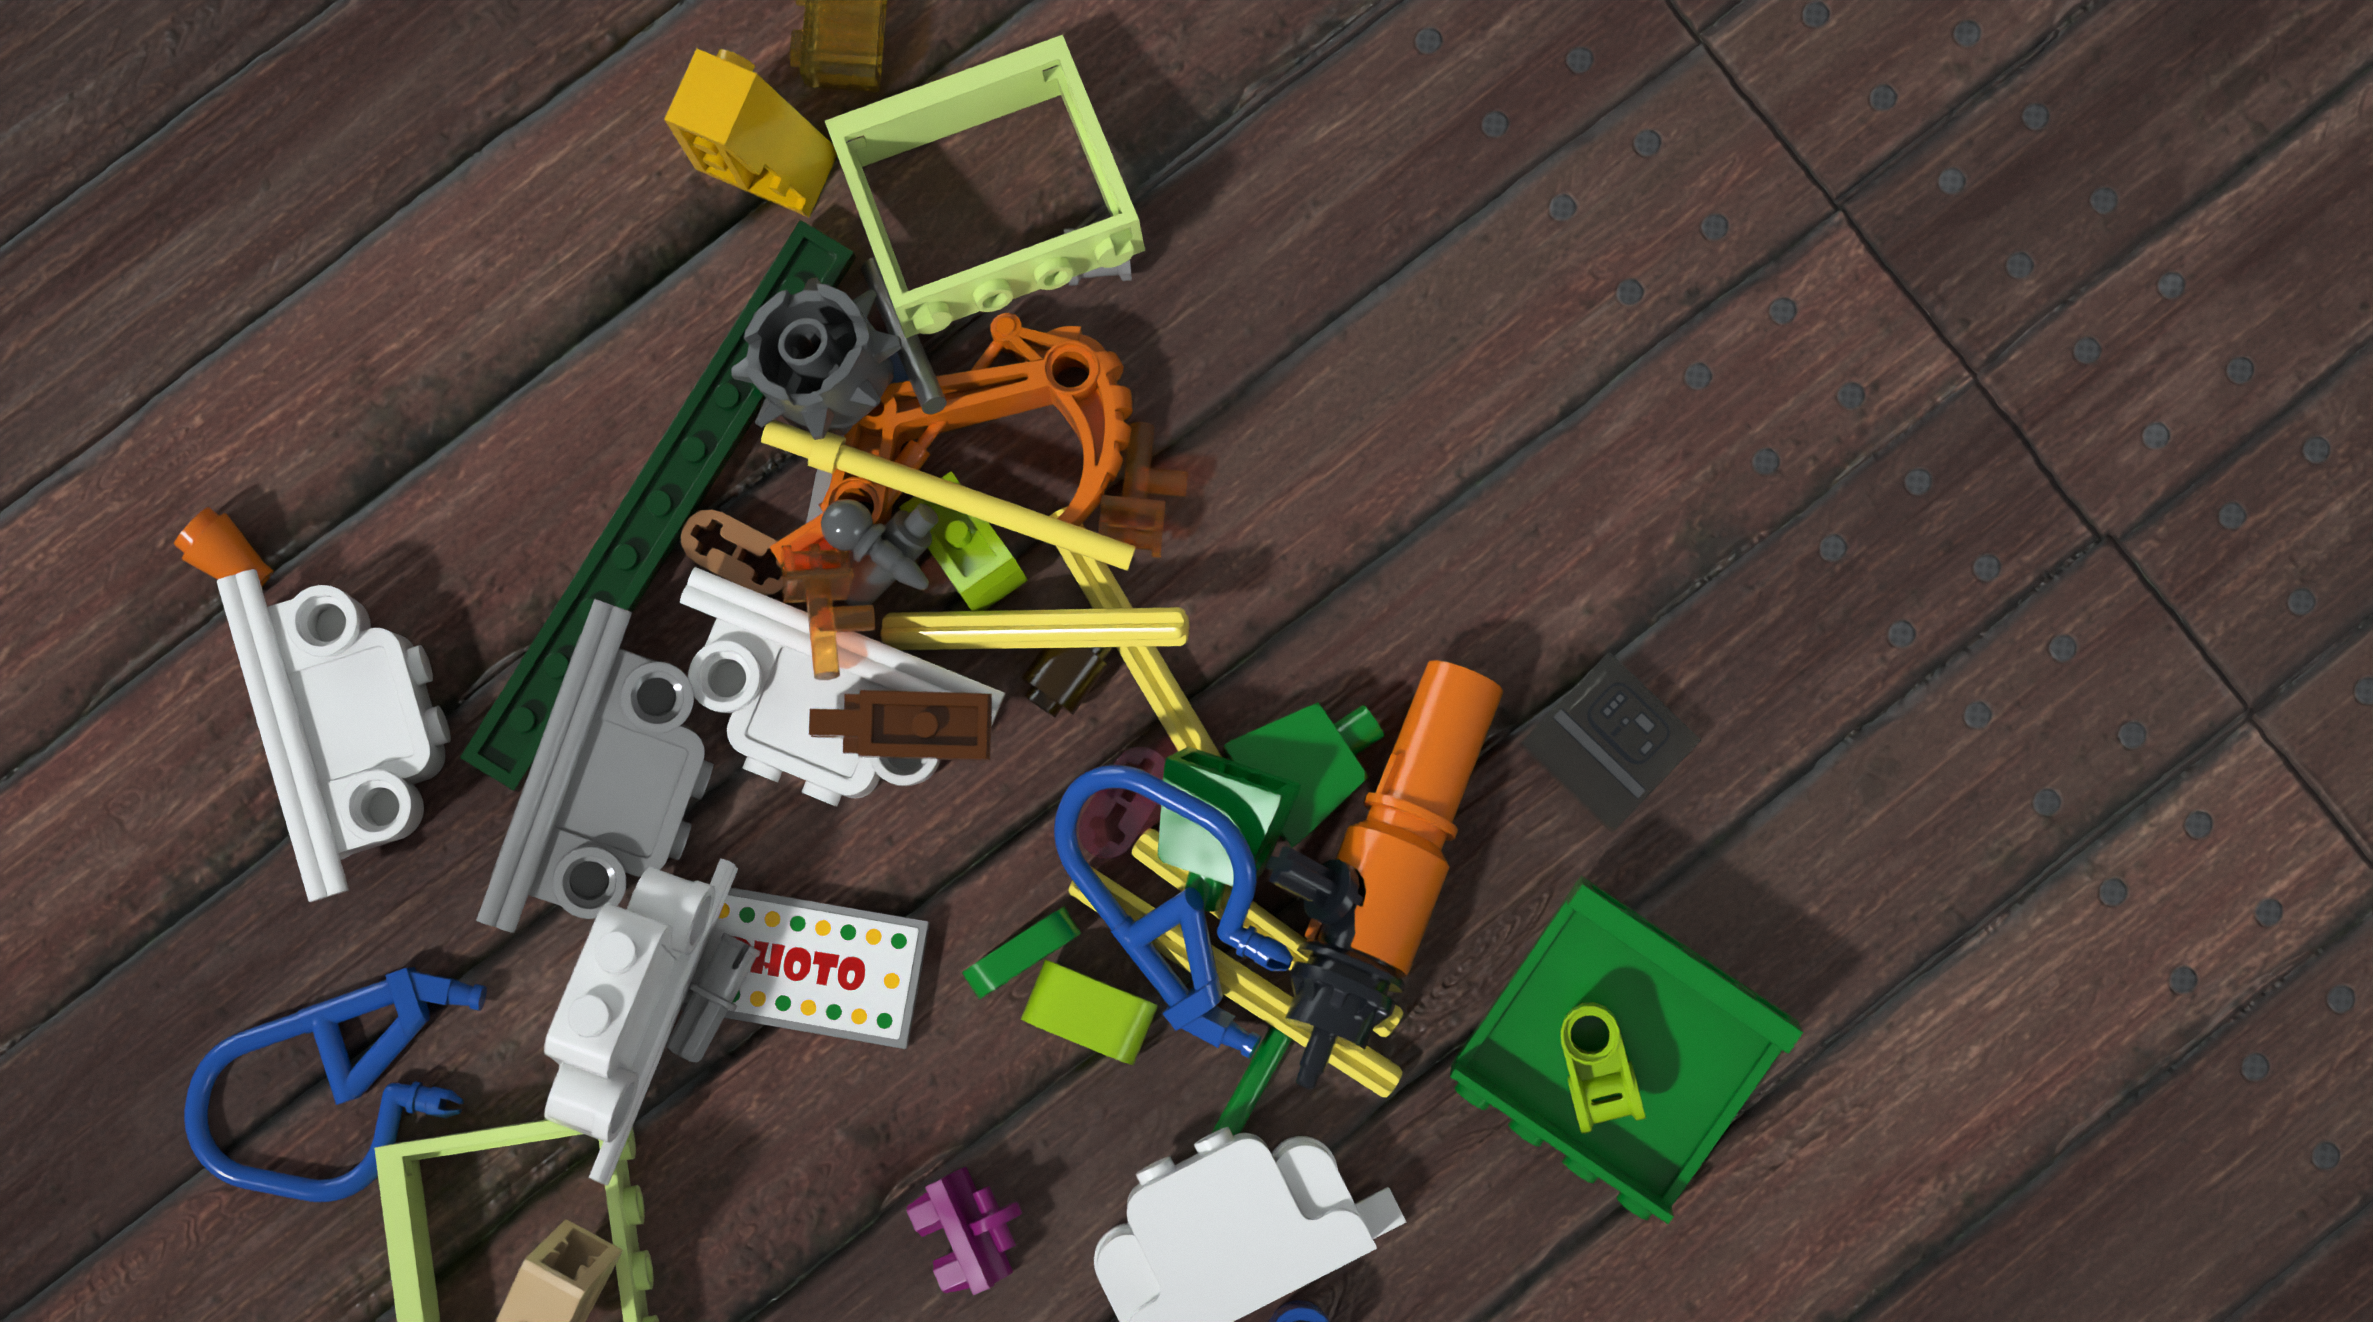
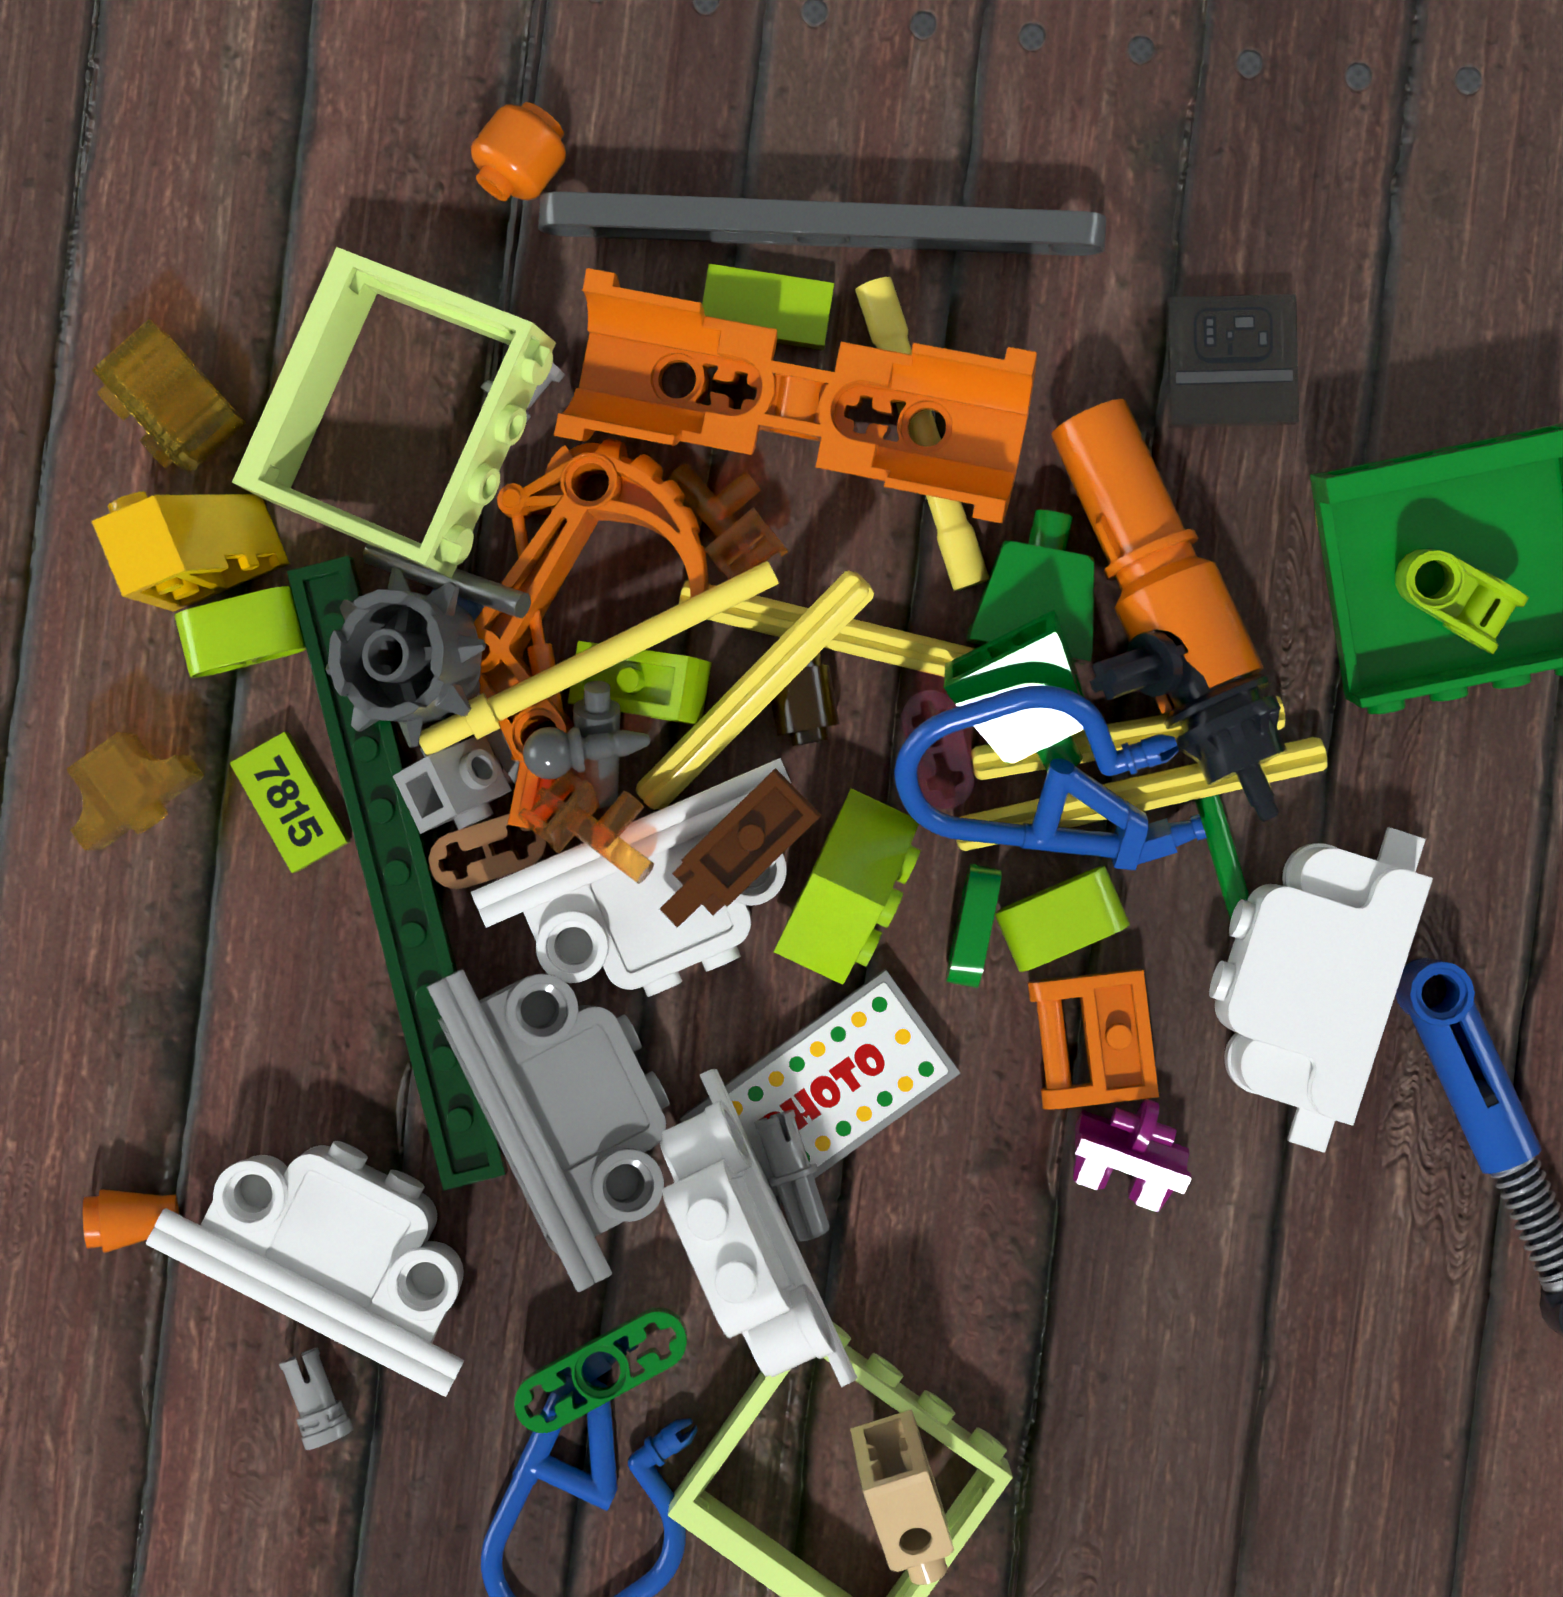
camera: 45 degrees left, 5 degrees up
(211, 826) = (321, 1416): none -> light grey pin
(396, 966) = (551, 1379): none -> green beam
(534, 256) = (126, 789): none -> clear yellow brick
(637, 380) = (290, 802): none -> lime tile
(725, 228) = (240, 631): none -> lime beam
(760, 482) = (453, 785): none -> light grey brick
(960, 835) = (851, 888): none -> lime brick
(1039, 1137) = (1114, 1033): none -> orange plate
(1212, 308) = (644, 333): none -> orange piece
(1255, 96) = (518, 152): none -> orange head
(1320, 374) = (781, 302): none -> lime tile
(1385, 482) = (954, 532): none -> light yellow piece
(1418, 357) = (822, 223): none -> dark grey beam

